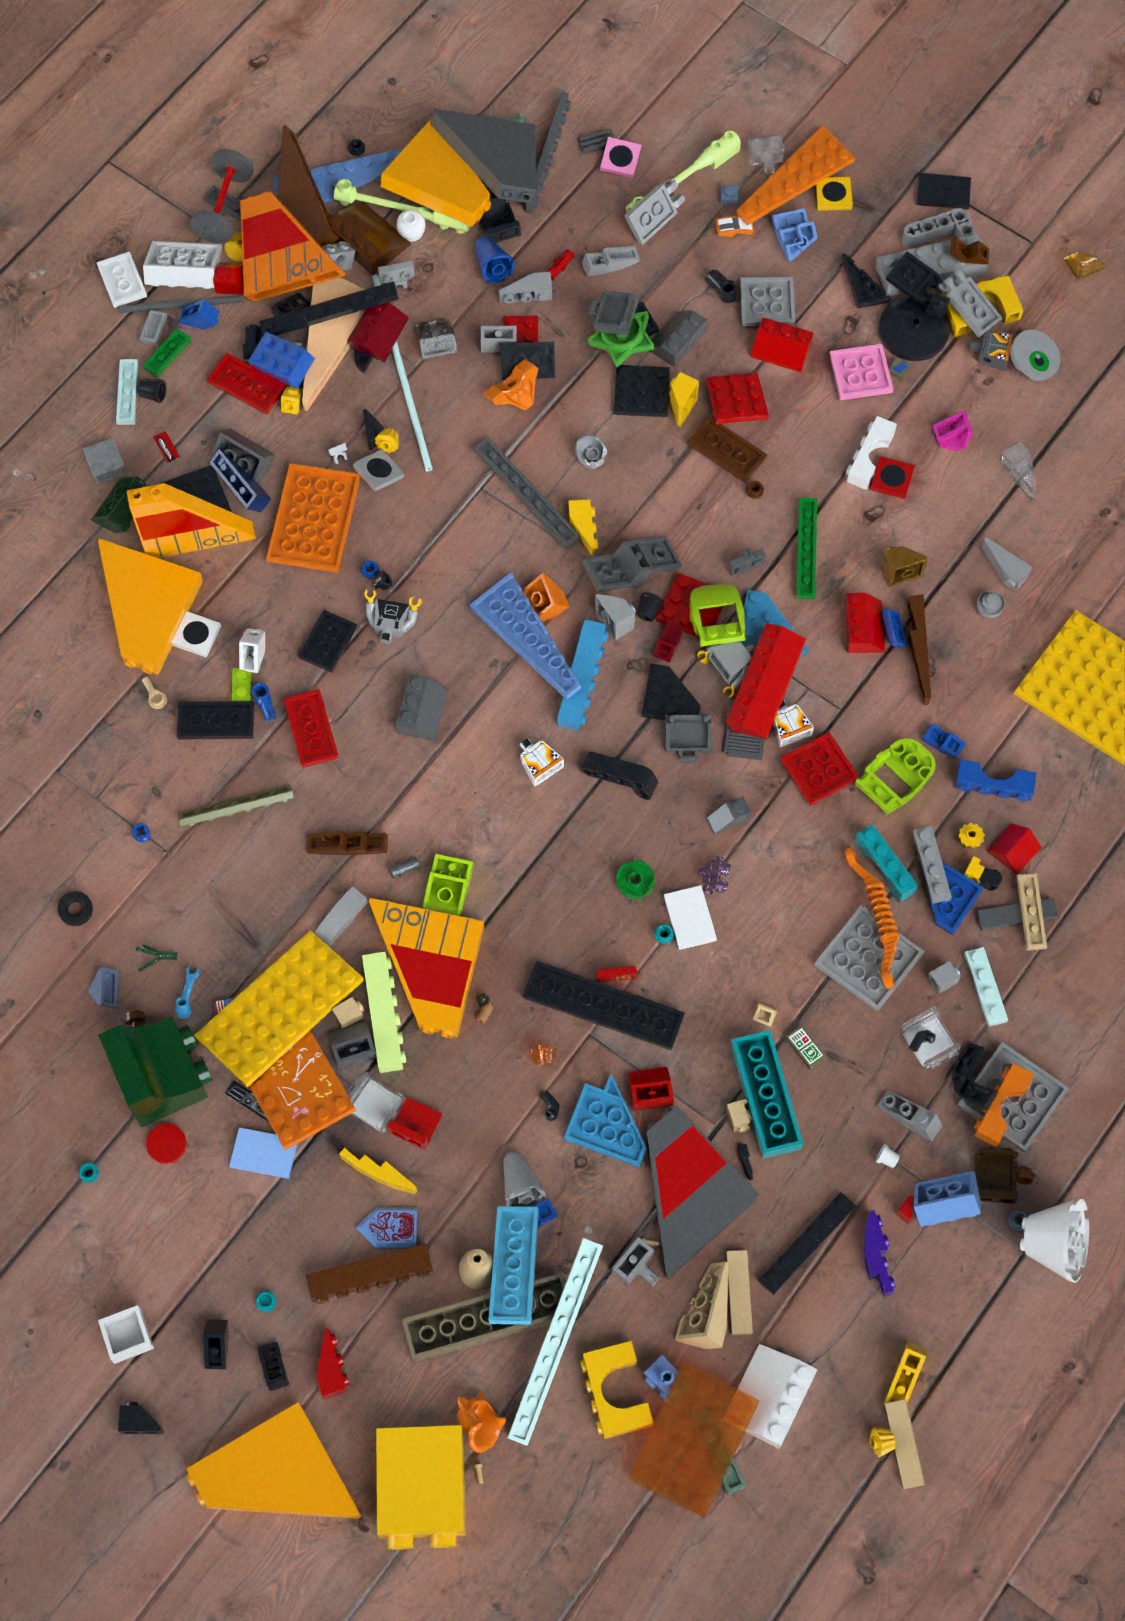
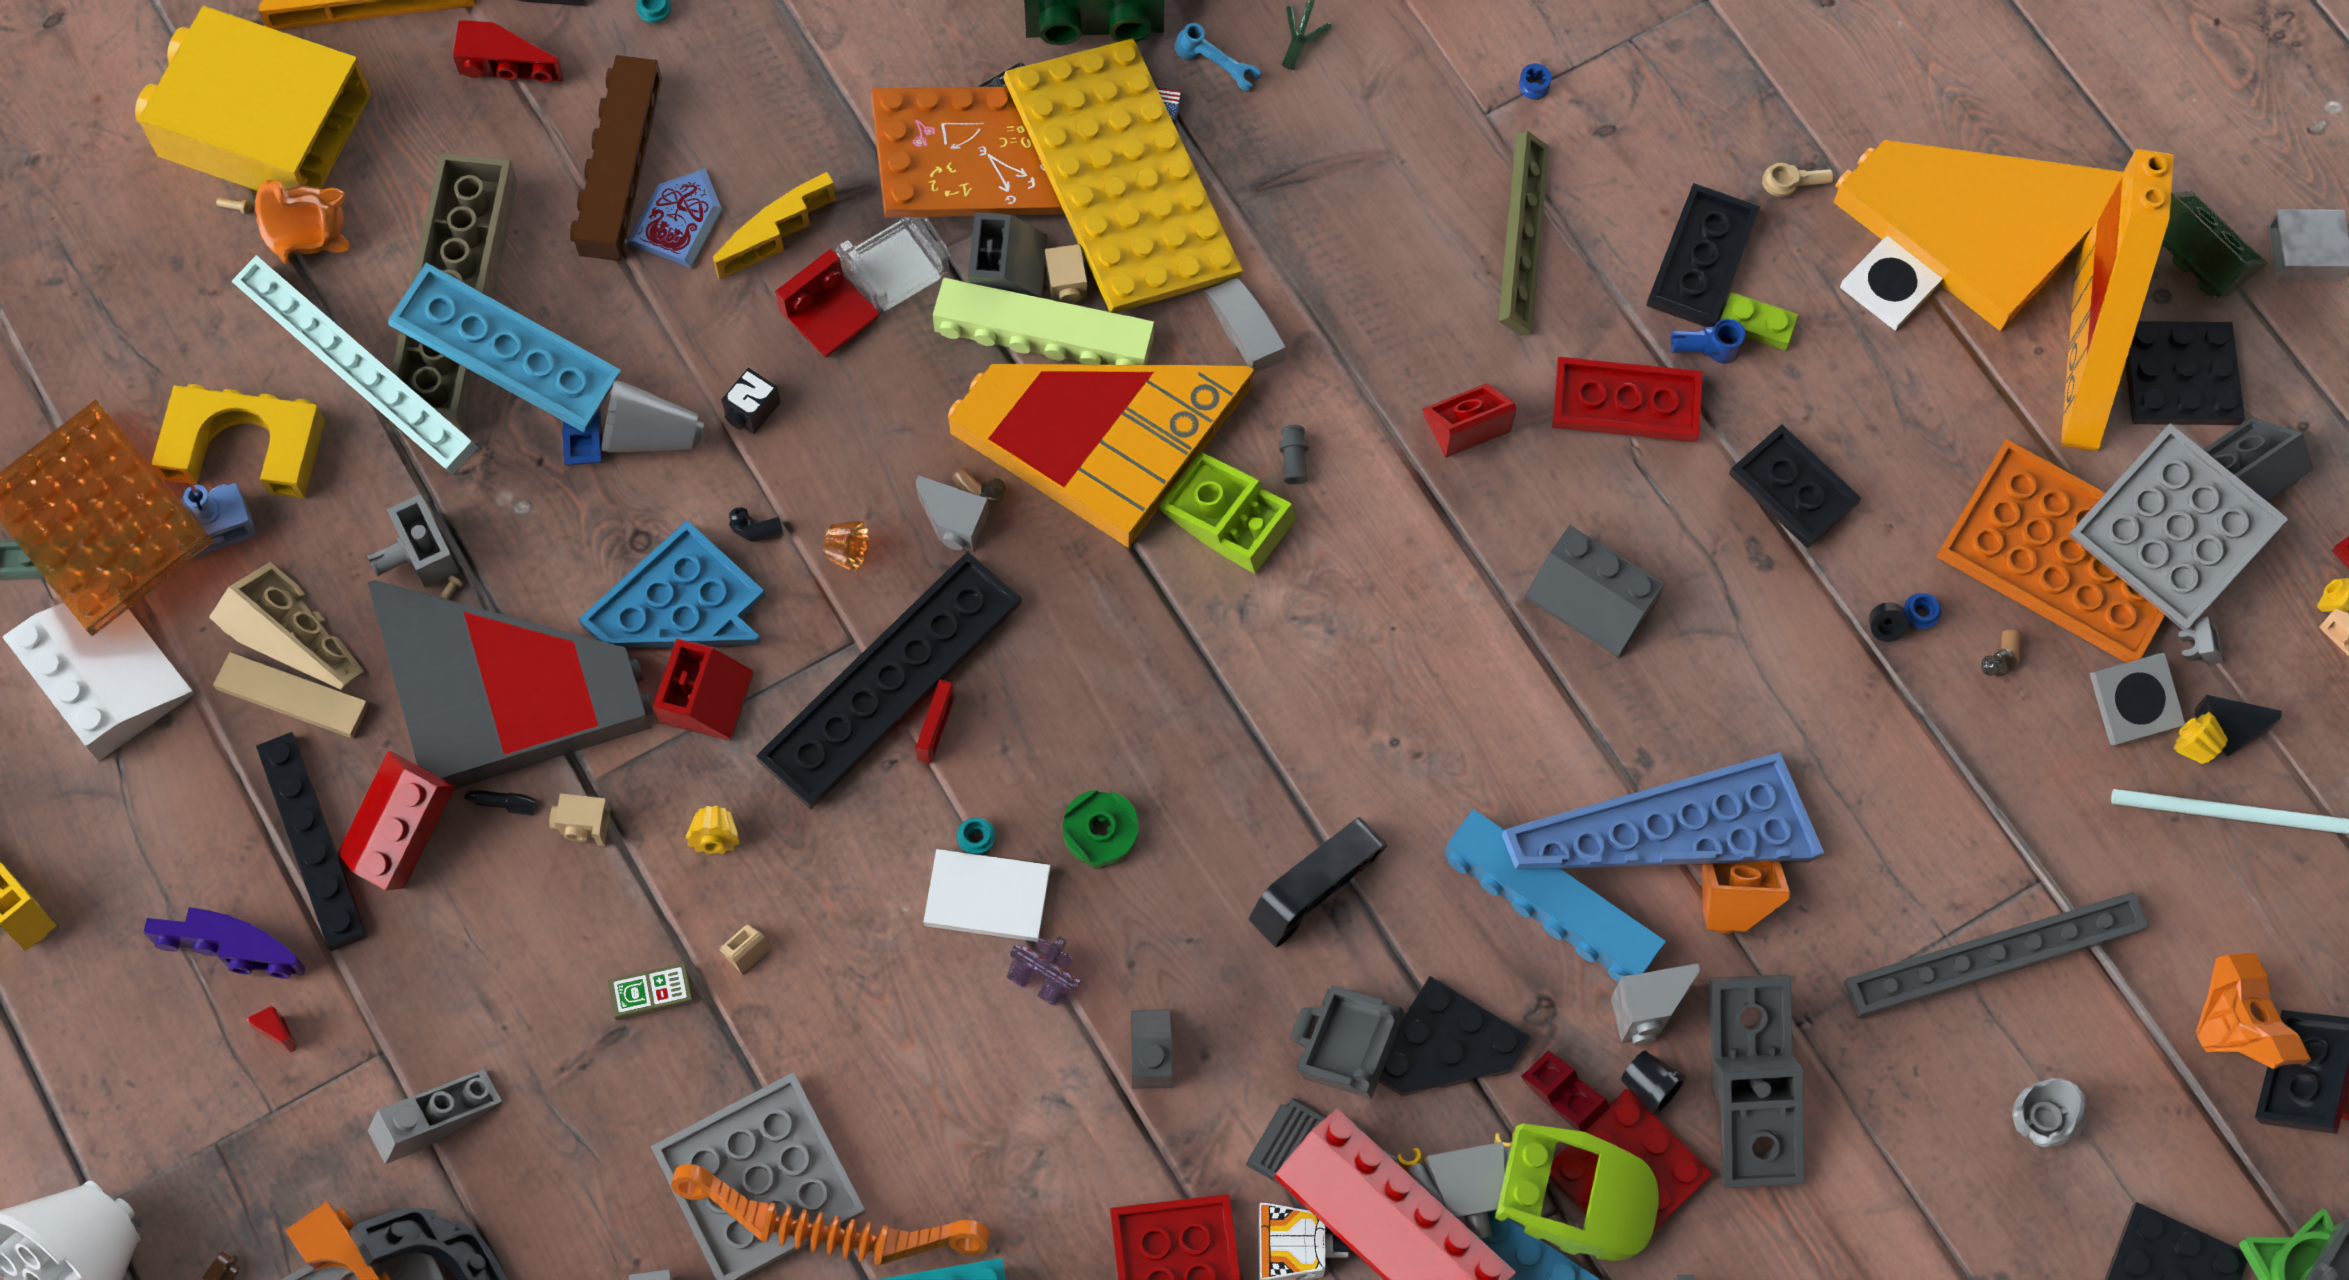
camera: 110 degrees right, 0 degrees up
(166, 447) = (2312, 360): sticker -> none
(240, 482) = (2213, 435): dark blue slope -> none
(251, 643) = (1820, 349): white torso -> none
(262, 1154) = (893, 63): light blue tile -> none
(290, 470) = (2178, 527): none -> light grey plate
(347, 843) = (1378, 382): reddish brown slope -> none
(350, 794) = (1470, 418): none -> red slope
(378, 528) = (2005, 659): none -> clear smoke arm
(390, 617) = (1804, 602): light grey torso -> none
(476, 1268) = (545, 302): tan cone -> none
(485, 1137) = (750, 401): none -> black brick
(505, 1012) = (953, 513): none -> light grey slope
(540, 761) = (1405, 752): torso -> none
(581, 520) = (1891, 1032): yellow slope -> none
(717, 1051) = (712, 831): none -> yellow piece
(766, 1094) = (592, 875): teal brick -> none
(784, 1199) = (394, 822): none -> red slope
(887, 1156) = (381, 1040): white piece -> none
(921, 1037) = (560, 1197): black arm -> none
(931, 1053) = (552, 1220): clear panel -> none
(947, 1199) = (247, 1099): medium blue slope -> none
(996, 1174) = (245, 1216): dark brown panel -> none
(1016, 1214) = (144, 1213): sand blue plate -> none

